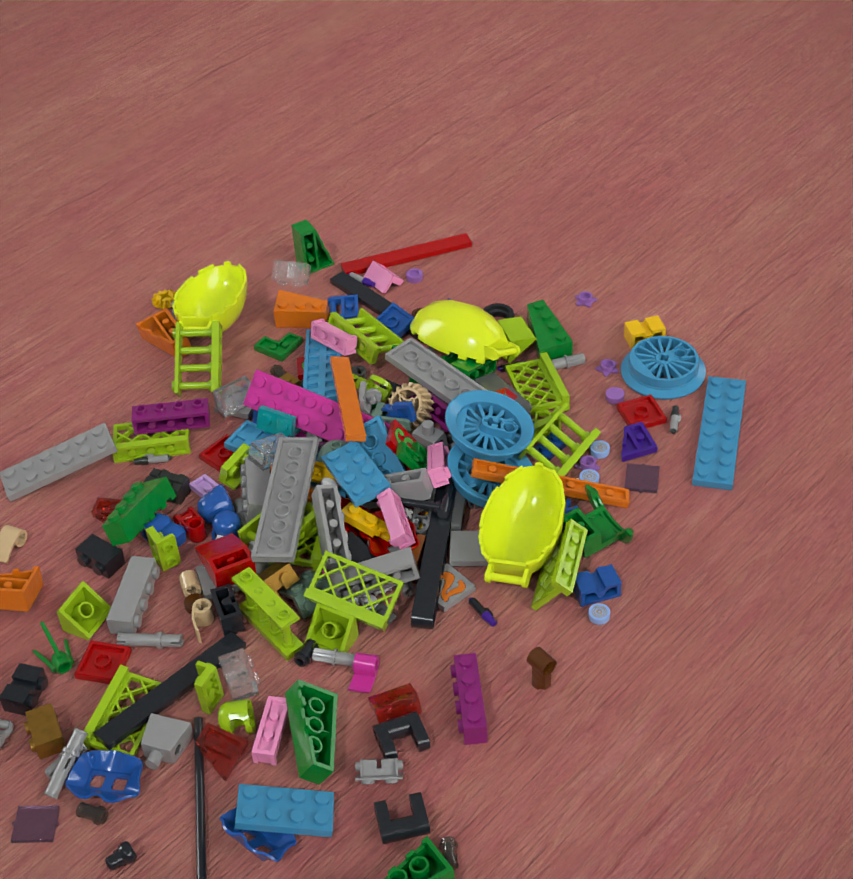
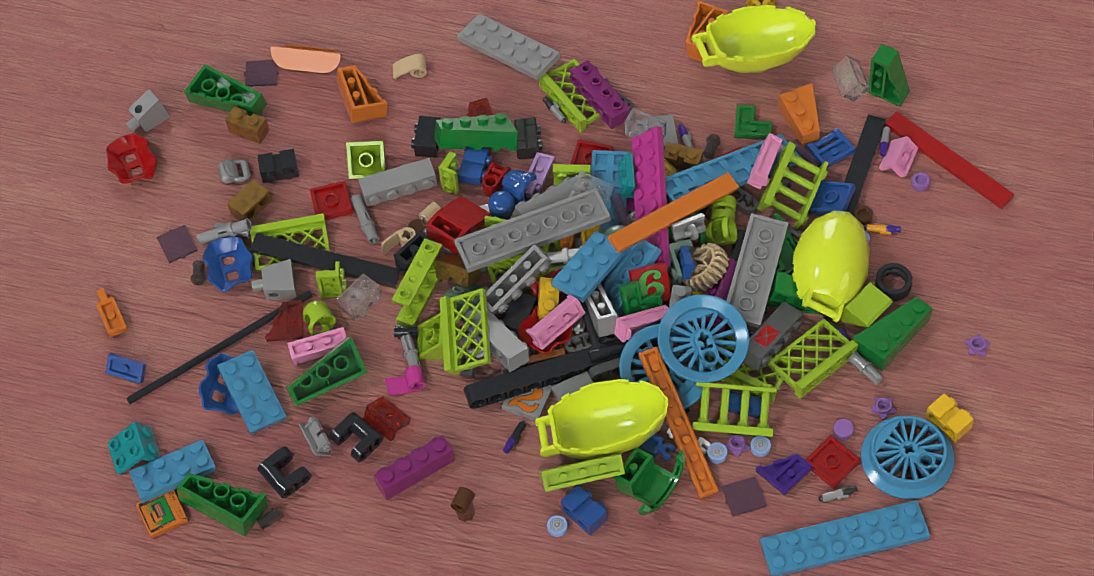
camera: 65 degrees right, 15 degrees up
(61, 661) = (315, 172): green plant -> none
(122, 855) = (174, 312): black piece -> none
(214, 349) = (685, 84): lime fence -> none

